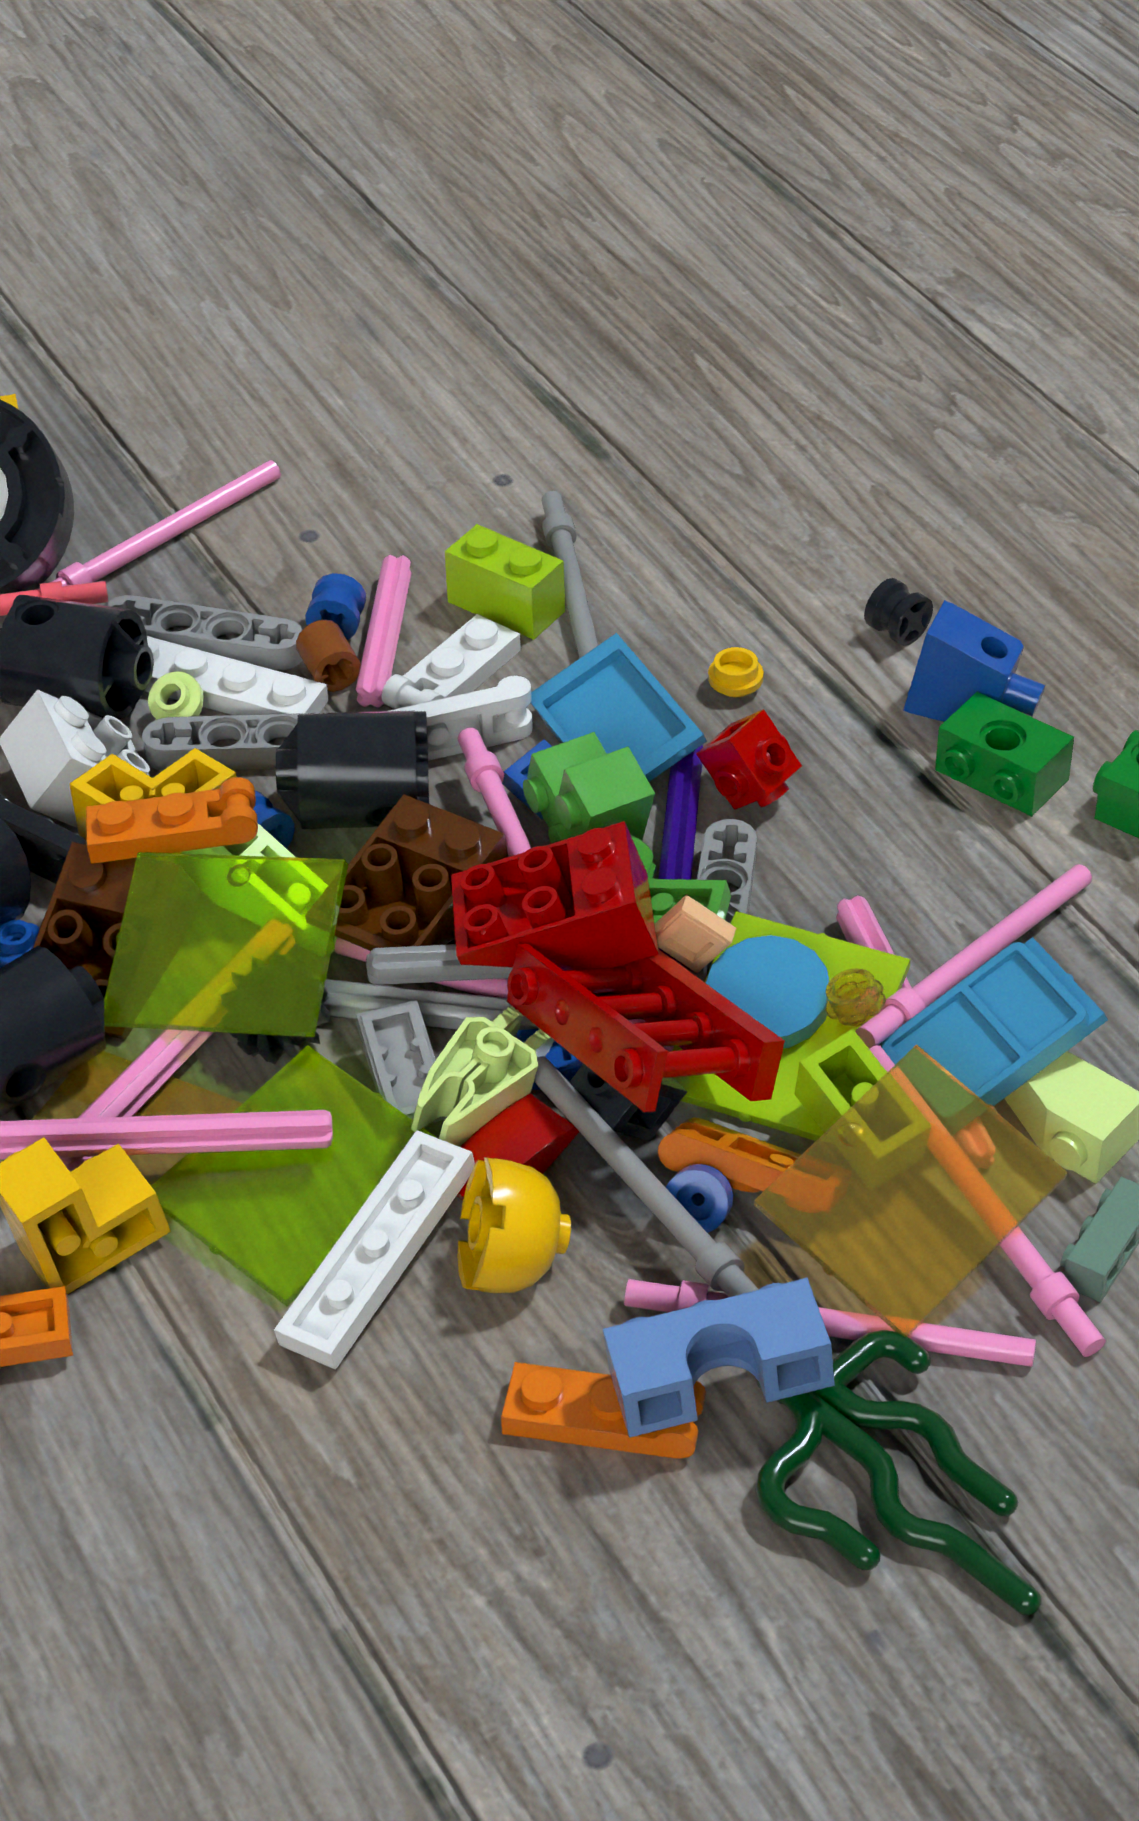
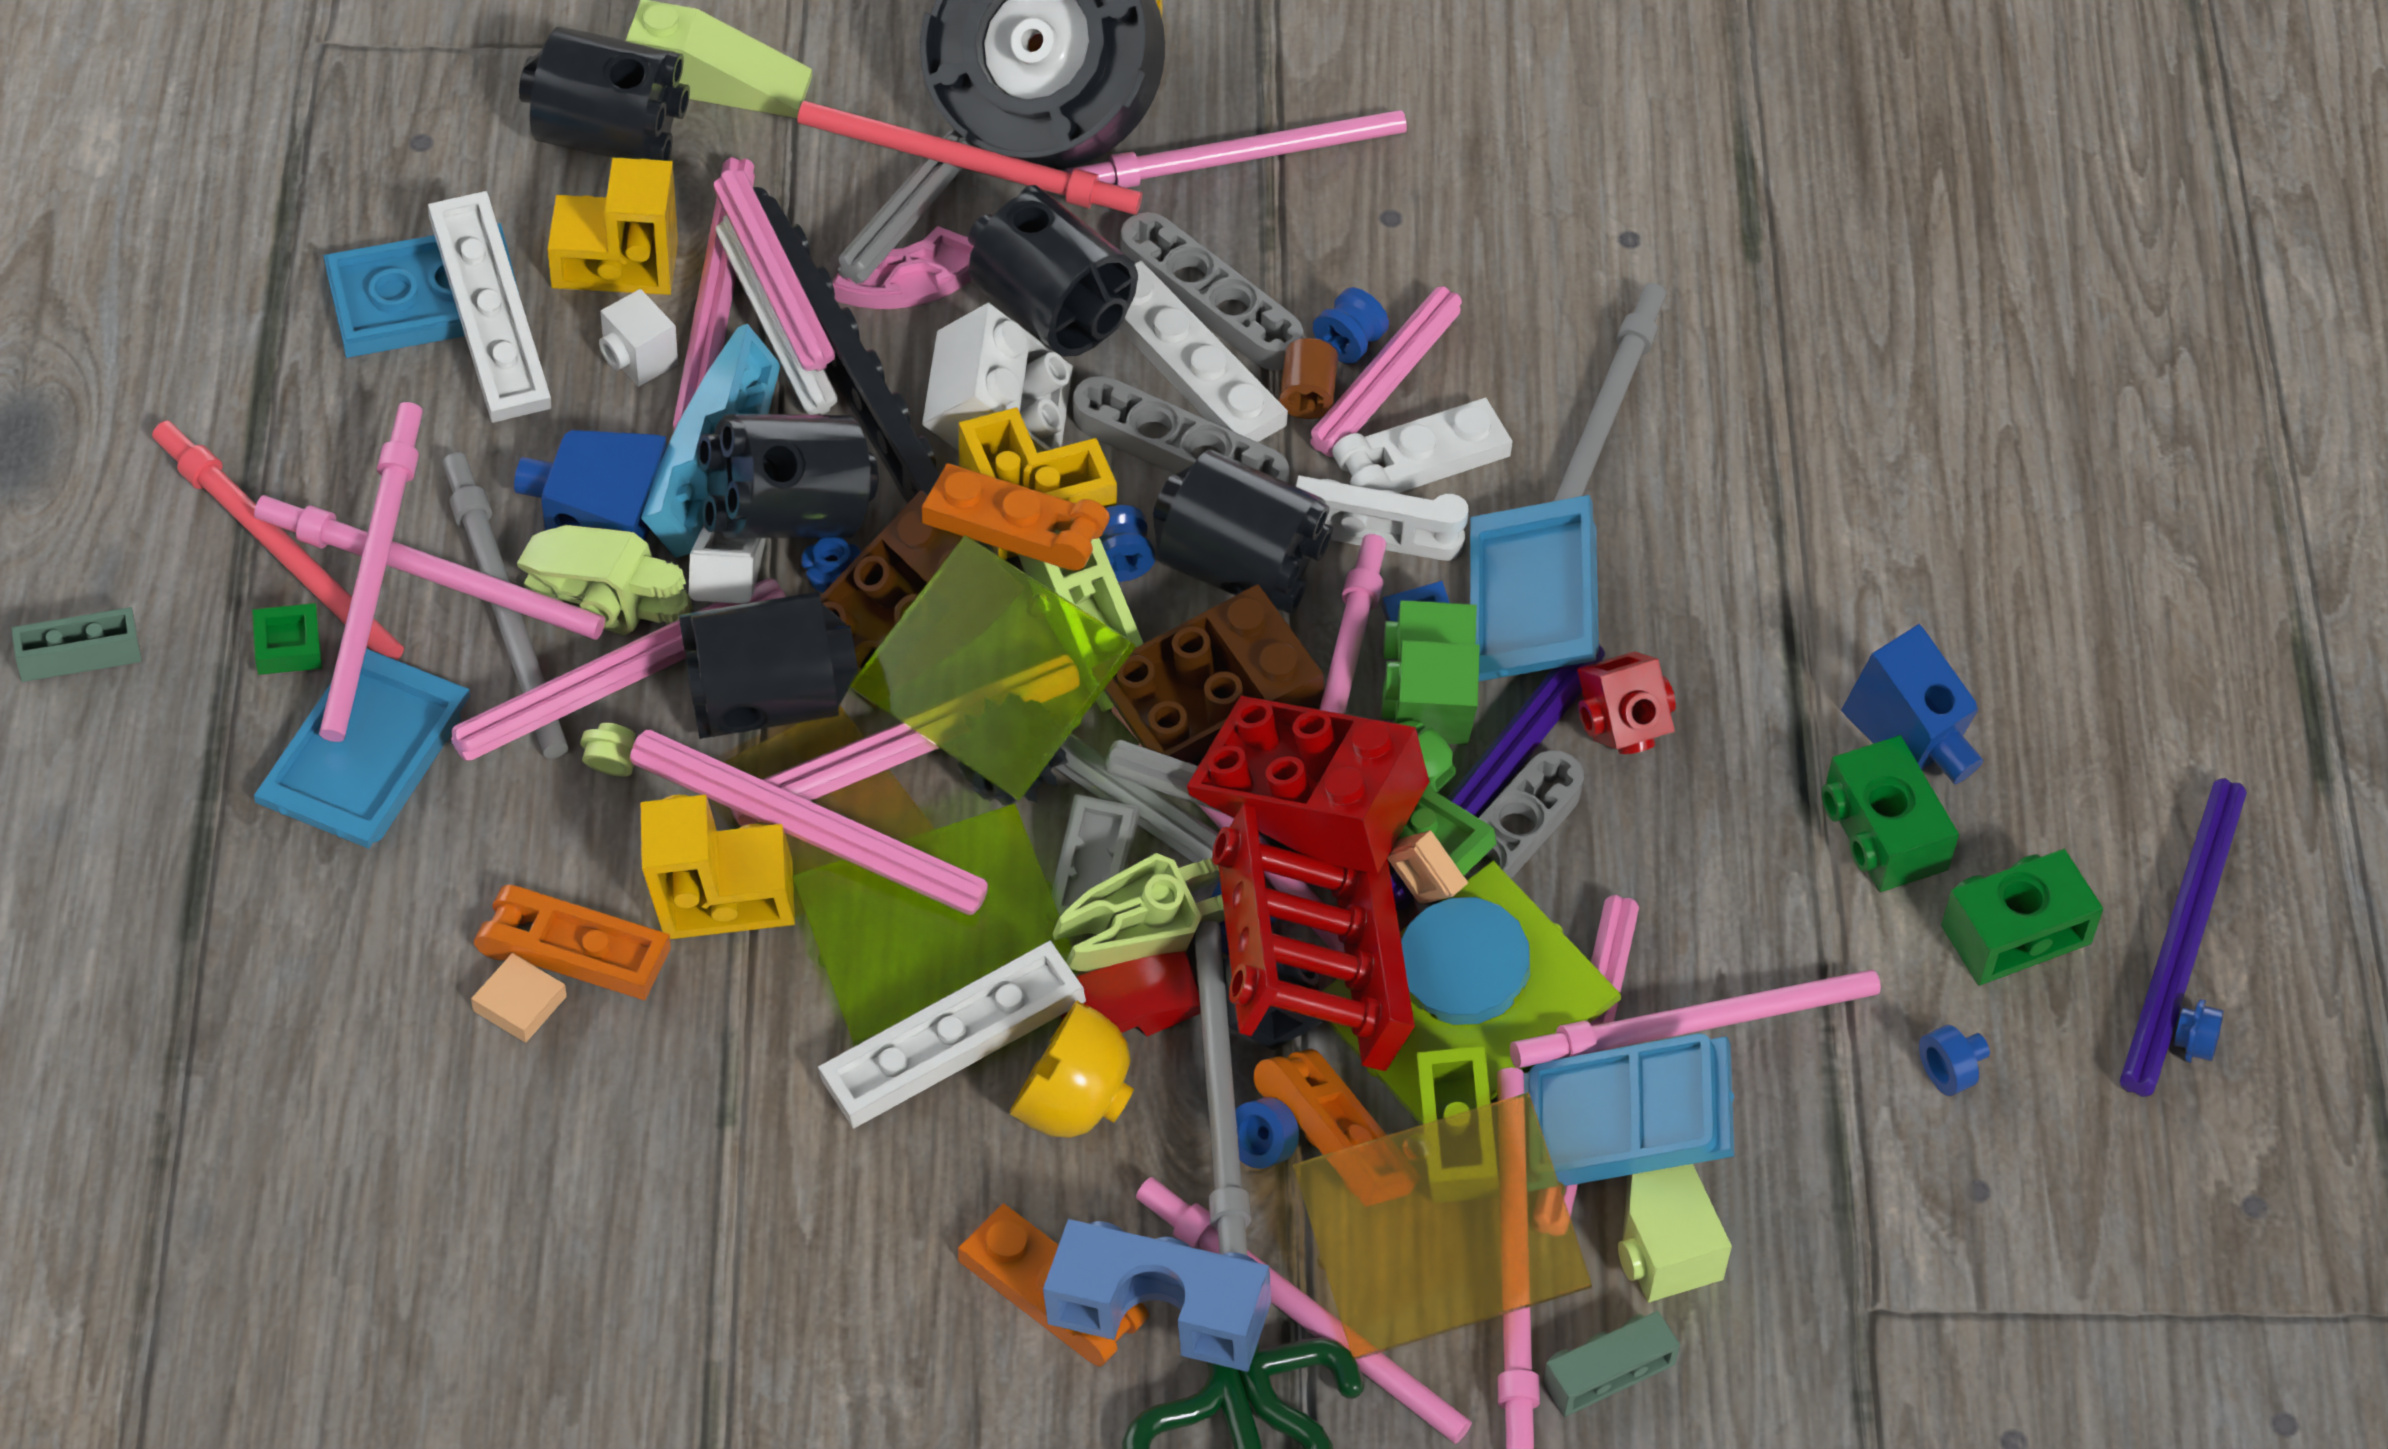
camera: 25 degrees right, 10 degrees up
(189, 703) = (1146, 366): yellowish green plate -> none
(505, 581) = (1534, 374): lime brick -> none
(735, 672) = (1696, 589): yellow plate -> none
(854, 997) = (1533, 1008): clear yellow plate -> none
(898, 611) = (1906, 596): black wheel -> none

